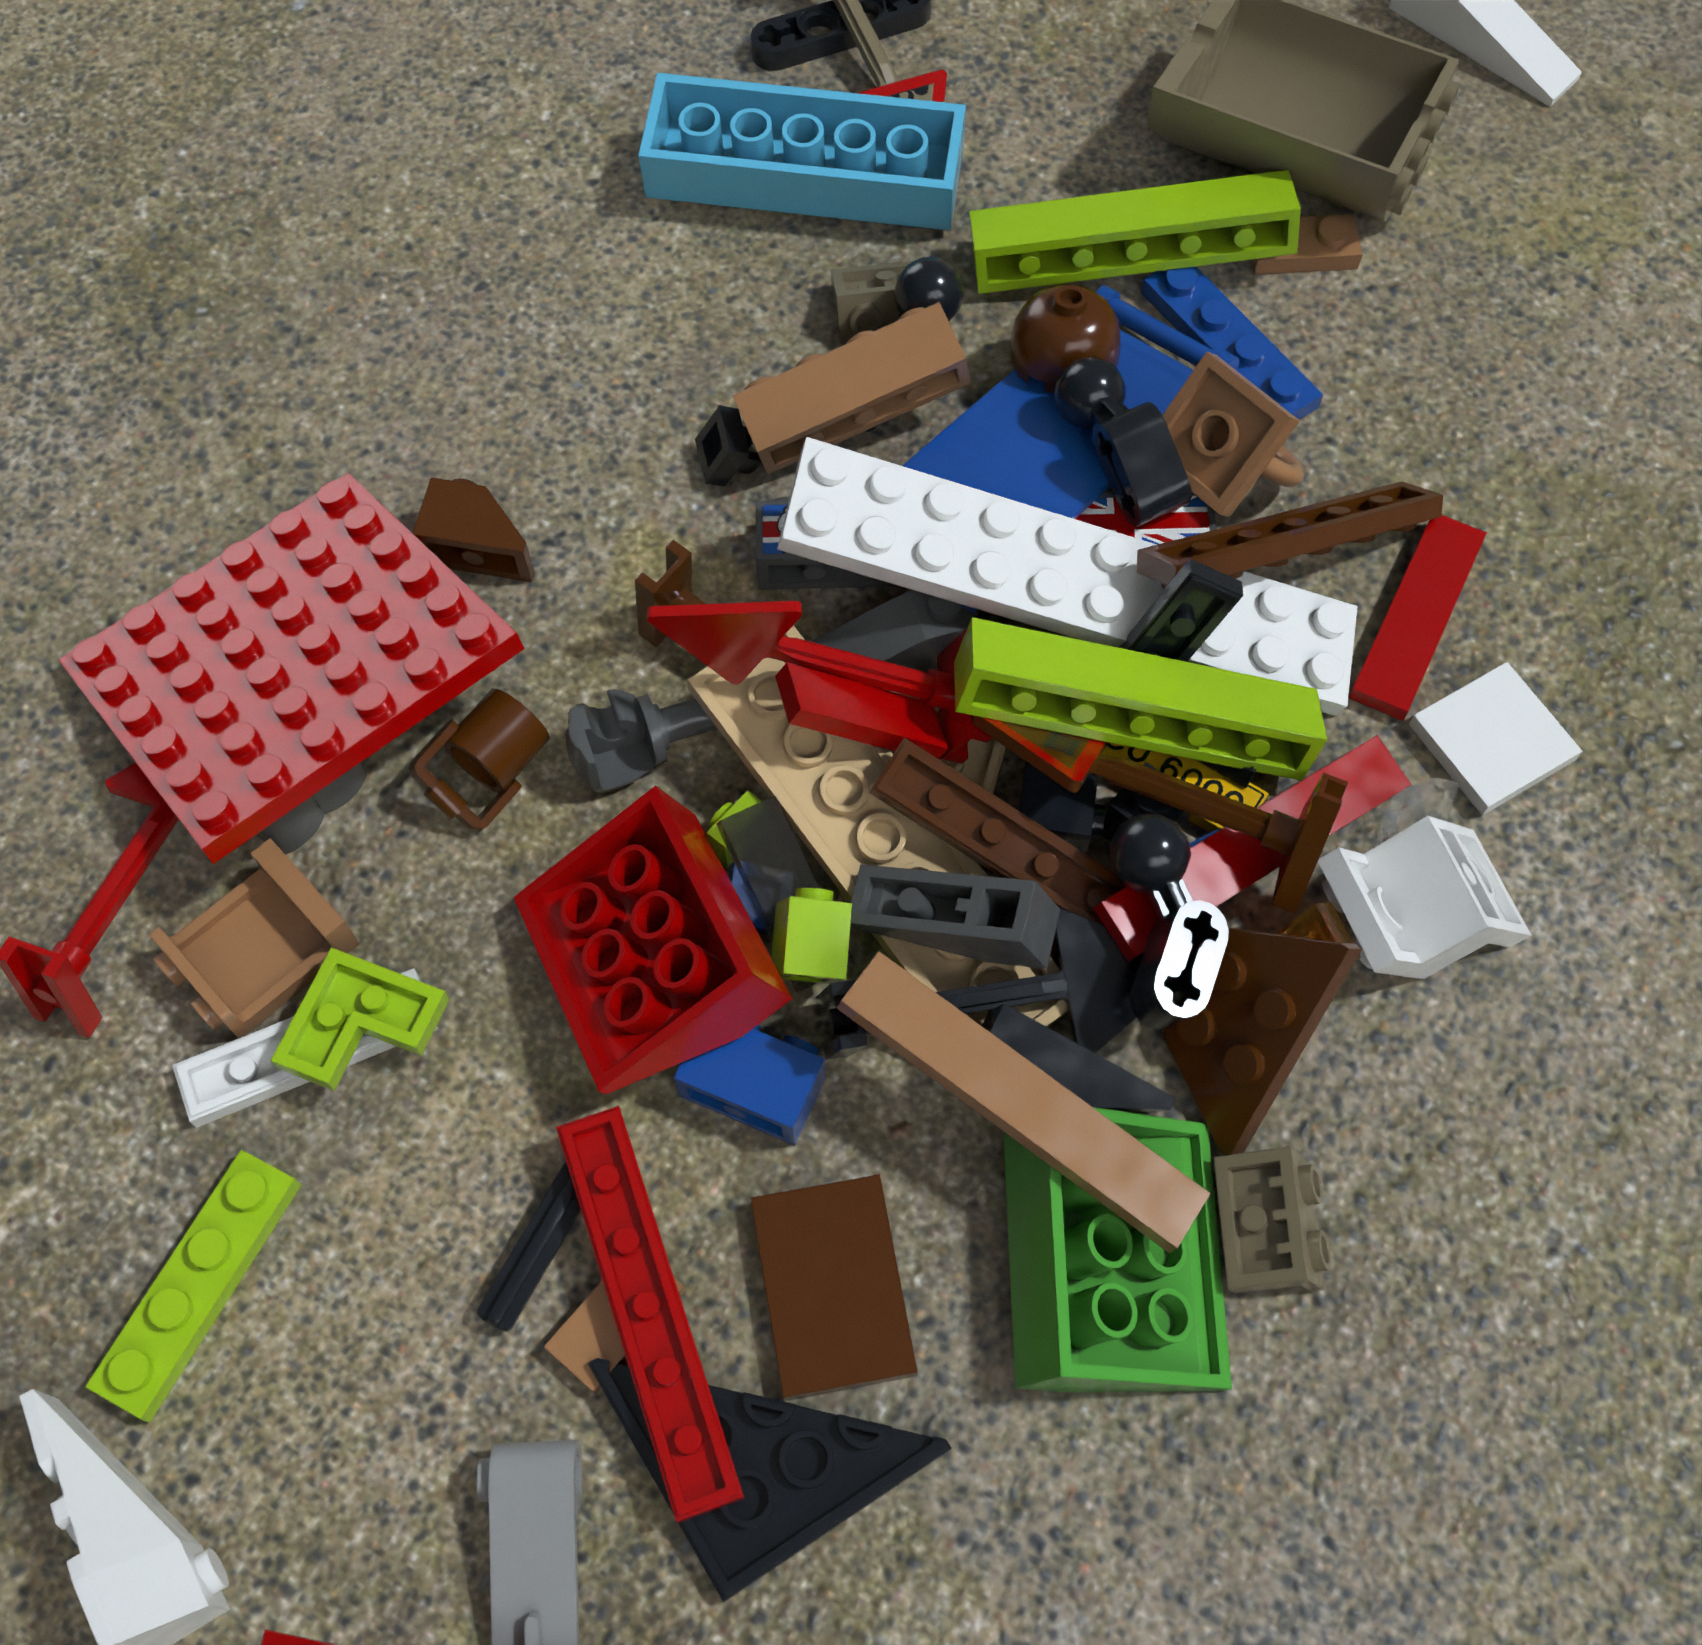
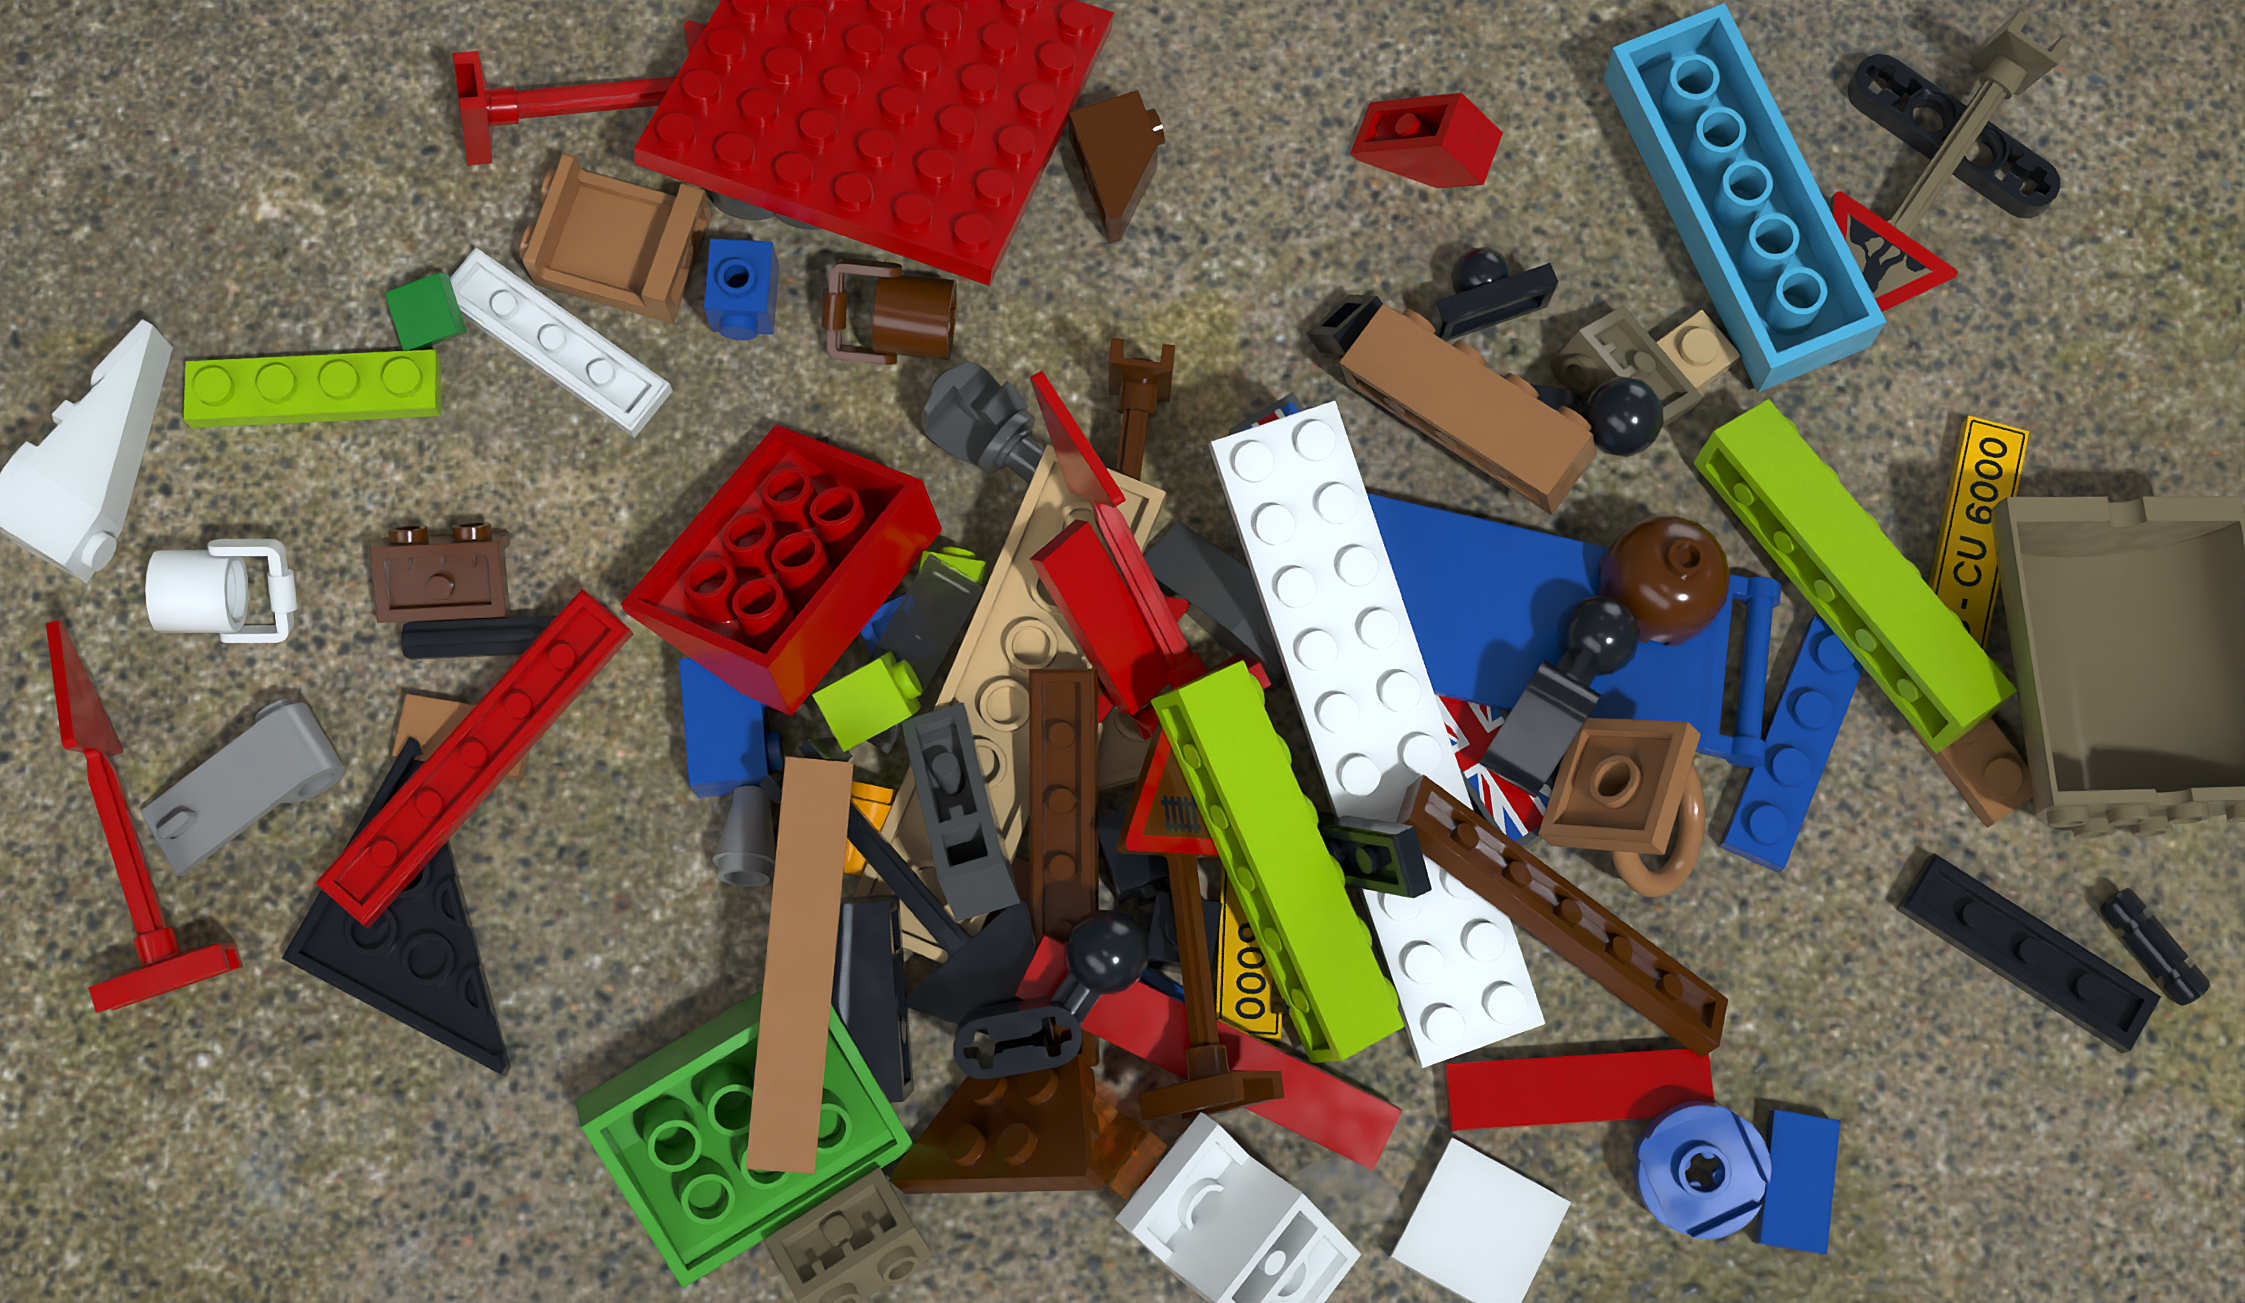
camera: 55 degrees right, 10 degrees up
(200, 1138) = (425, 312): none -> green tile
(321, 1485) = (210, 591): none -> white piece
(350, 1001) = (598, 351): lime plate -> none
(375, 858) = (741, 288): none -> blue brick
(453, 1253) = (440, 573): none -> reddish brown bracket
(613, 320) = (1429, 140): none -> red slope
(759, 344) = (1489, 294): none -> black tile
(833, 1287) = (587, 900): reddish brown tile -> none
(865, 1117) = (747, 840): none -> light grey cone
(894, 243) = (1699, 350): none -> tan plate
(1121, 145) = (1965, 557): none -> yellow tile
(1464, 289) = (2029, 953): none -> black tile
(1502, 214) = (2155, 947): none -> black axle
(1504, 576) = (1737, 1182): none -> plate
(1563, 511) = (1801, 1185): none -> blue tile

